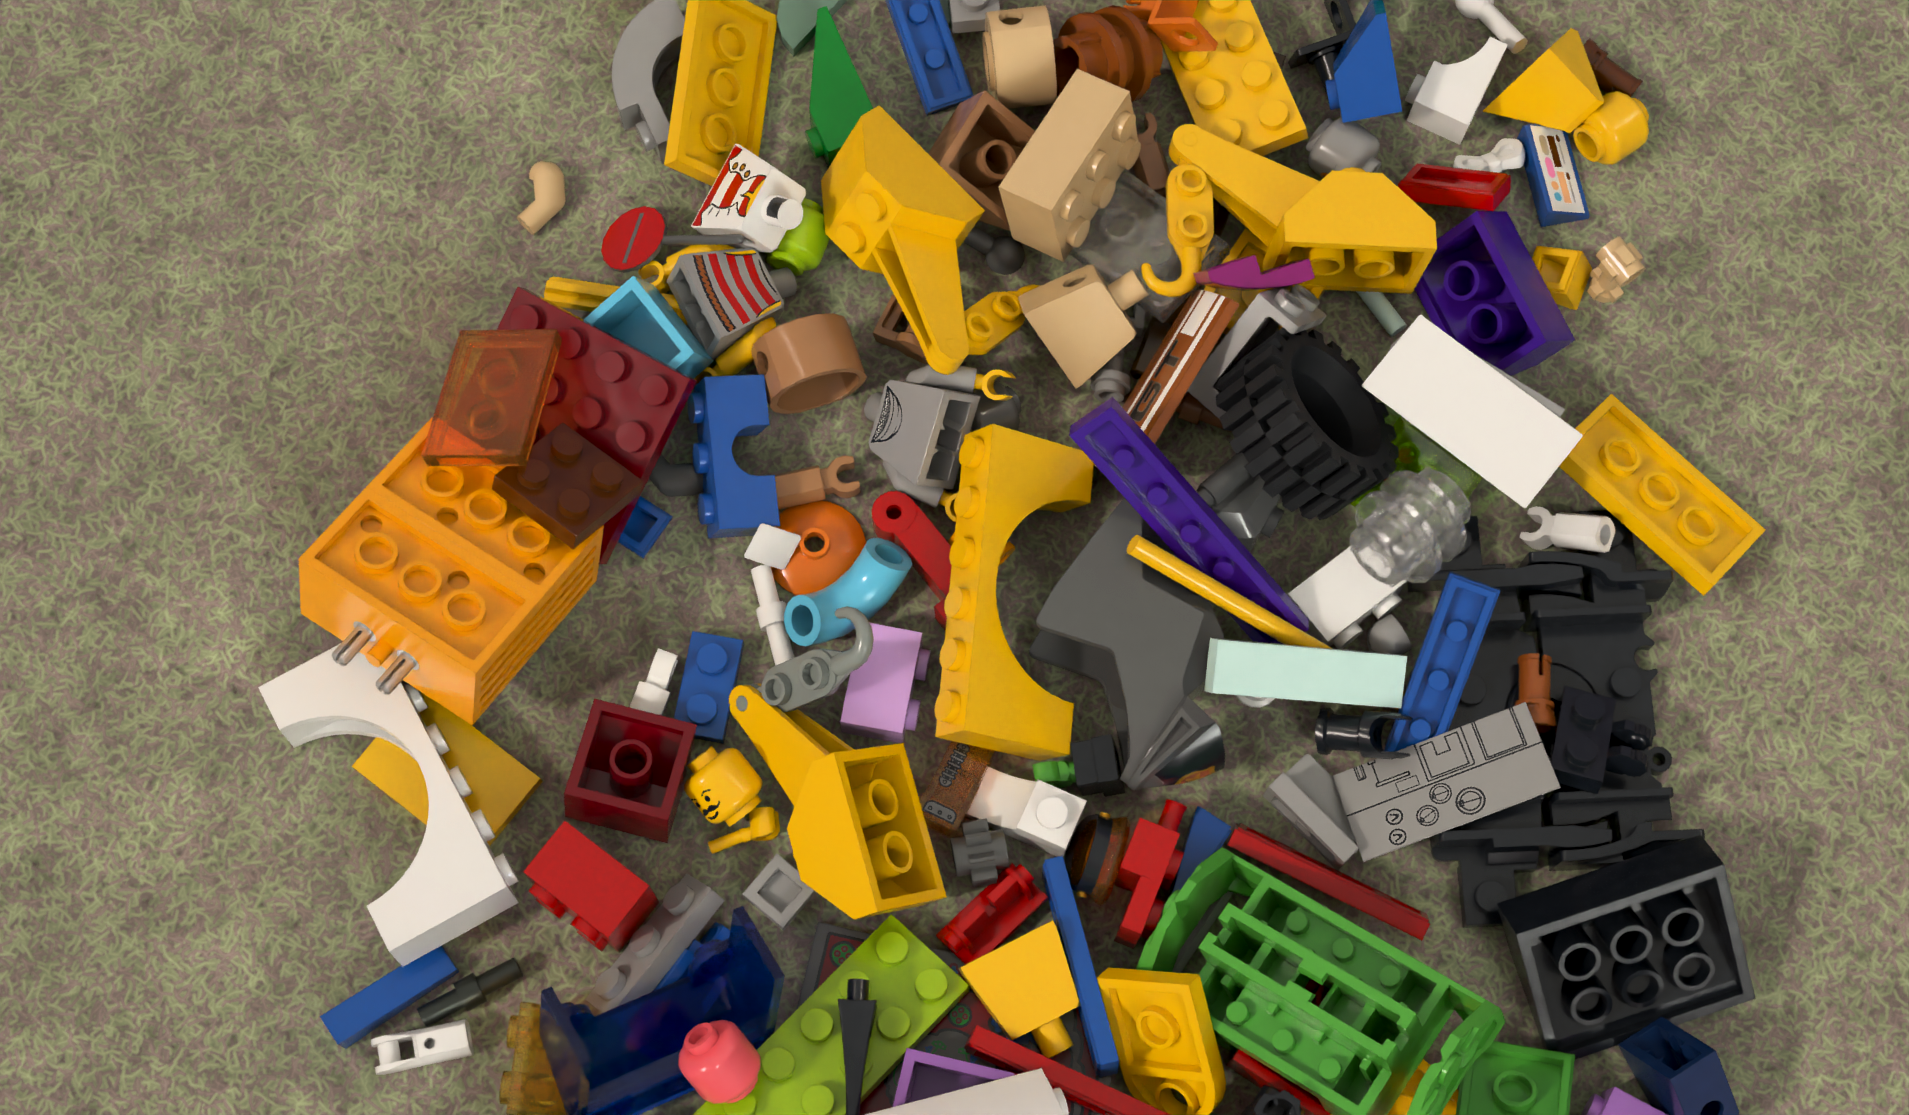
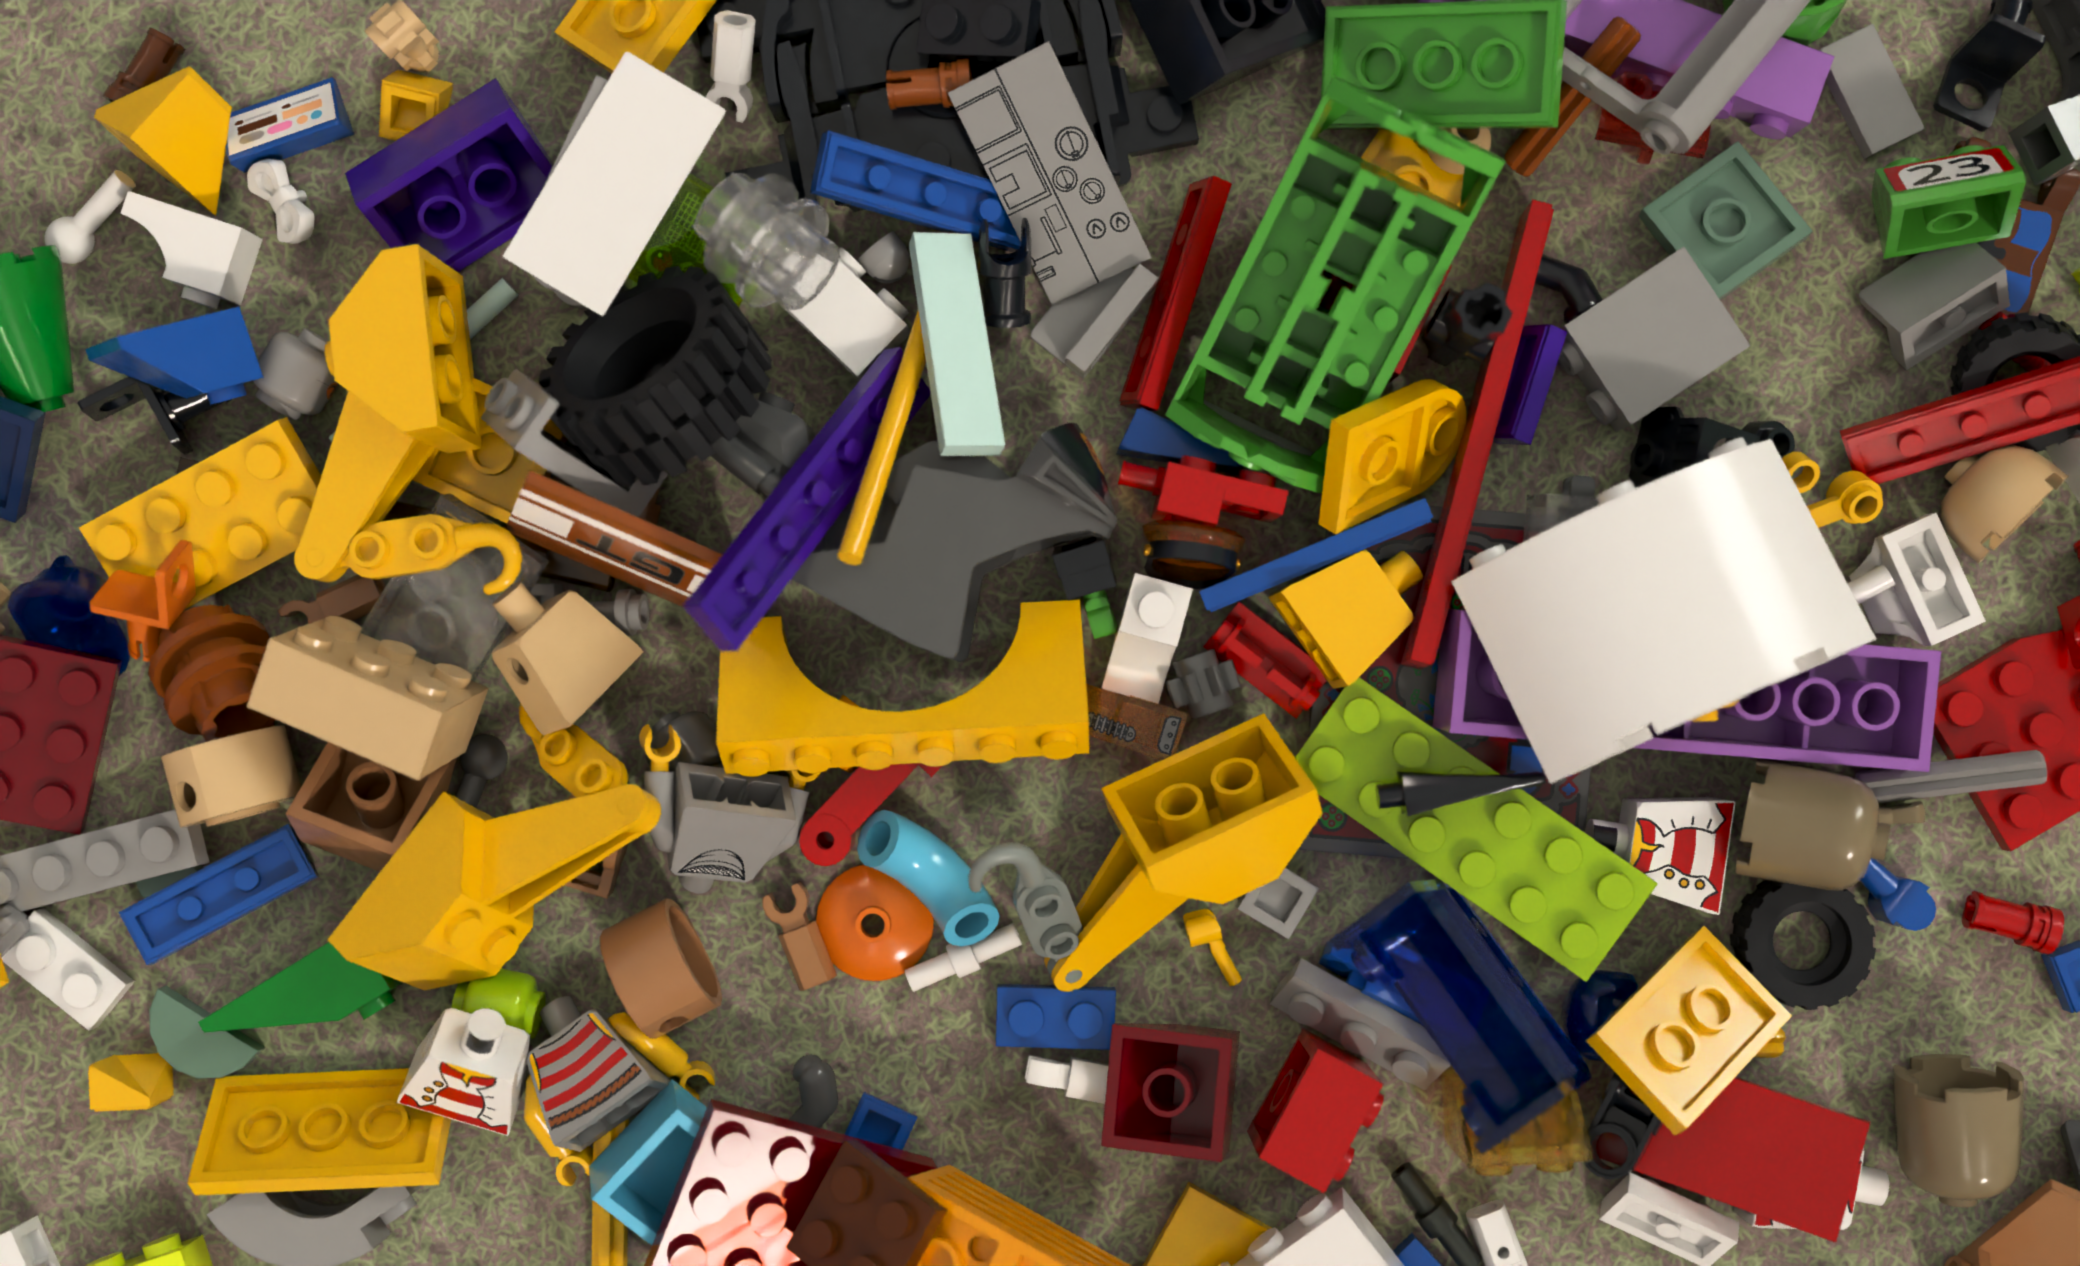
camera: 100 degrees left, 15 degrees up
(640, 236) = (528, 1193): red piece -> none
(719, 1062) = (1497, 935): coral head -> none
(723, 785) = (1172, 981): yellow head -> none
(731, 499) = (736, 1057): blue arch -> none
(772, 546) = (886, 972): white sticker -> none
(881, 690) = (1040, 816): lavender brick -> none
(1246, 275) = (485, 470): magenta slope -> none
(1456, 186) = (323, 236): red tile -> none
(1613, 129) = (220, 55): yellow head -> none

